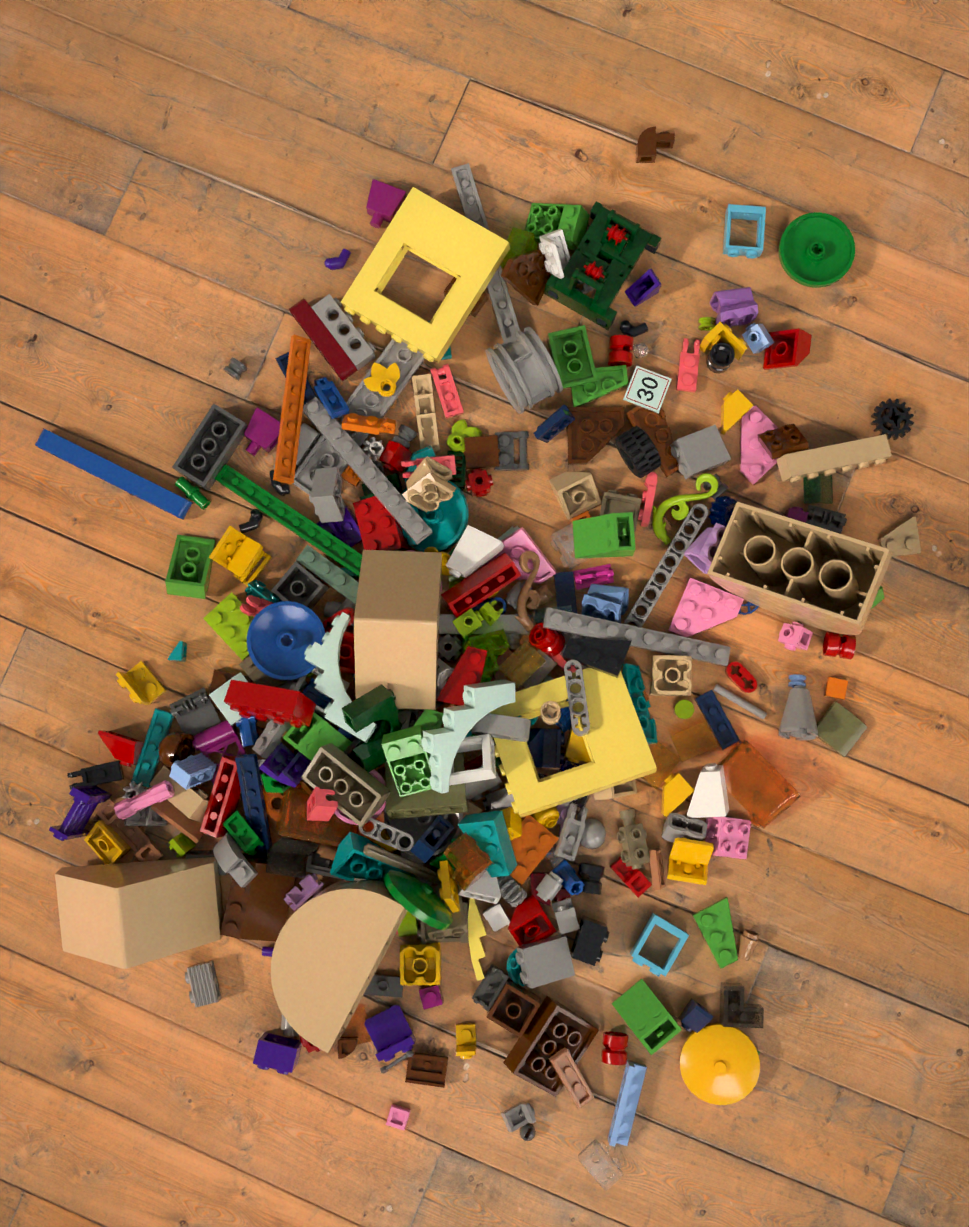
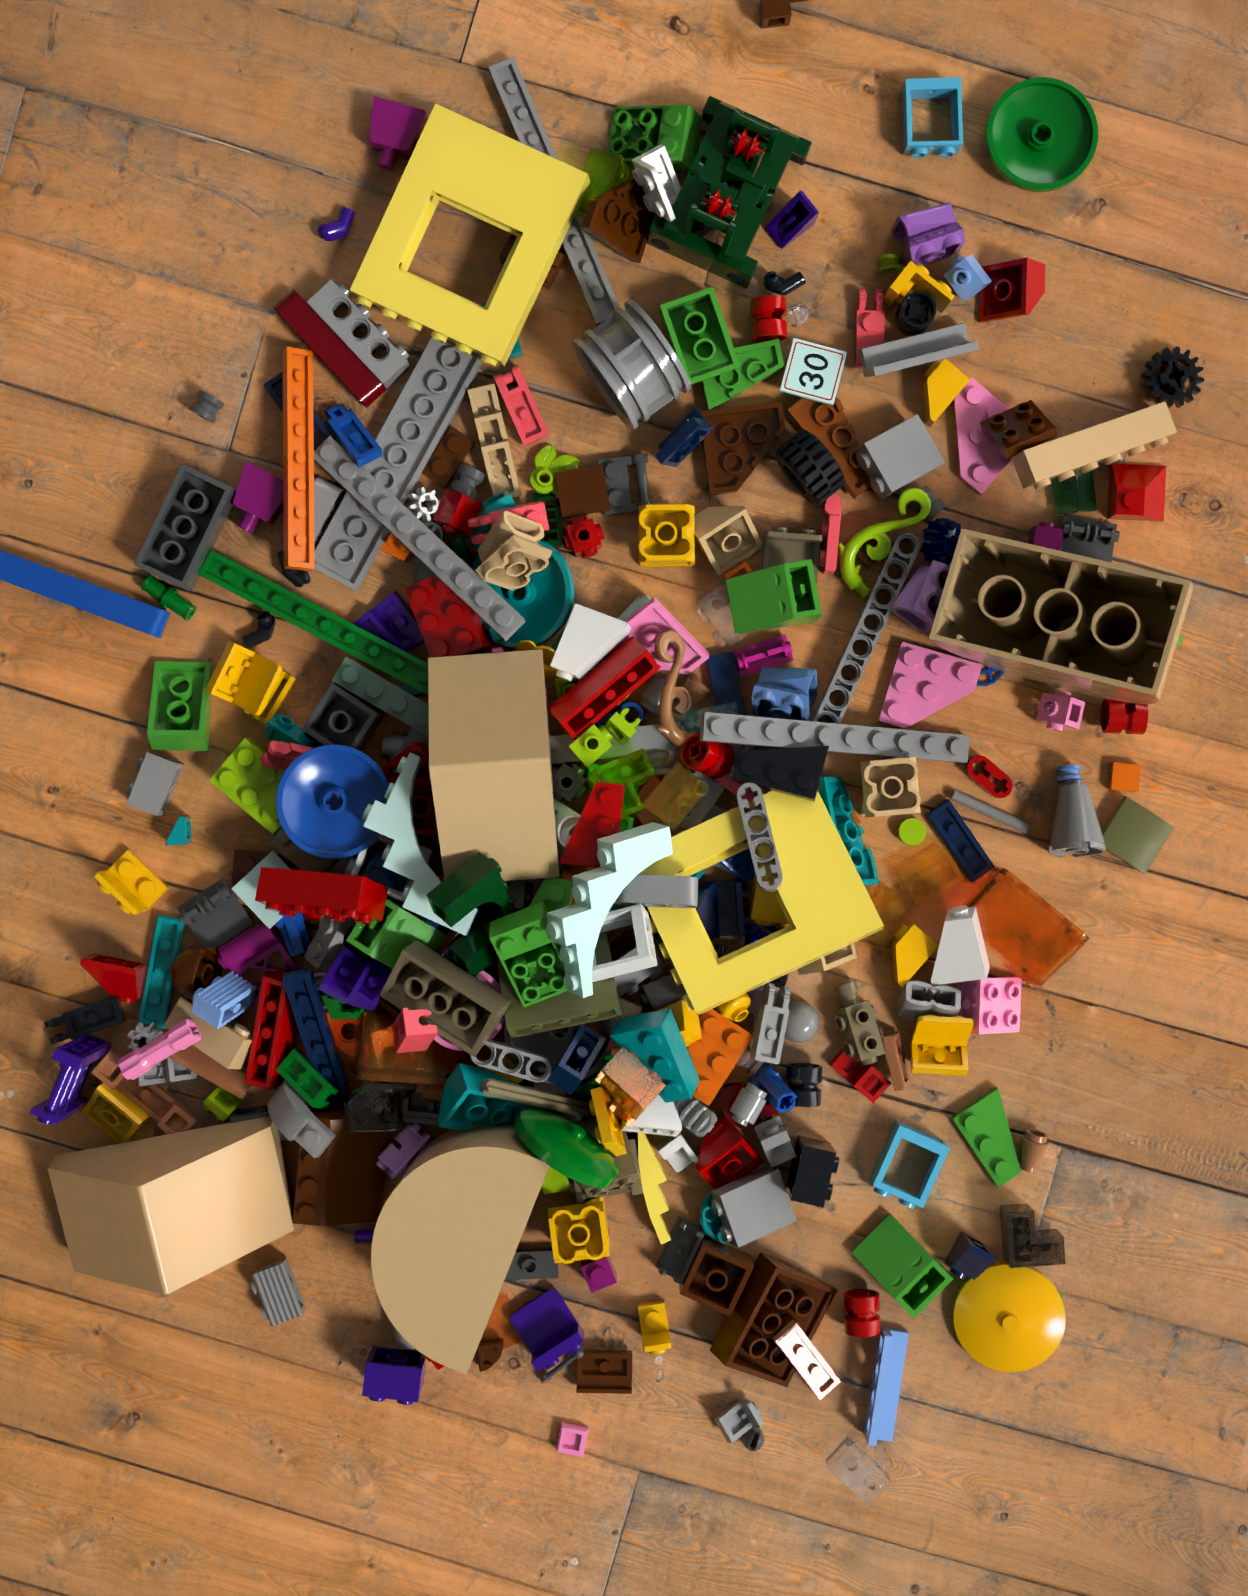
camera: 20 degrees left, 5 degrees up
(165, 617) = (154, 783): none -> light grey brick
(327, 495) = (365, 580): light grey brick -> none
(368, 424) = (412, 469): orange hinge -> none
(383, 377) = (424, 396): yellow plate -> none
(400, 413) = (448, 457): none -> reddish brown plate
(535, 487) = (666, 535): none -> yellow piece
(550, 708) = (722, 858): tan wheel -> none
(718, 382) = (916, 350): none -> light grey fence
(861, 494) = (1136, 492): none -> red slope
(903, 539) = (1200, 553): tan wing -> none

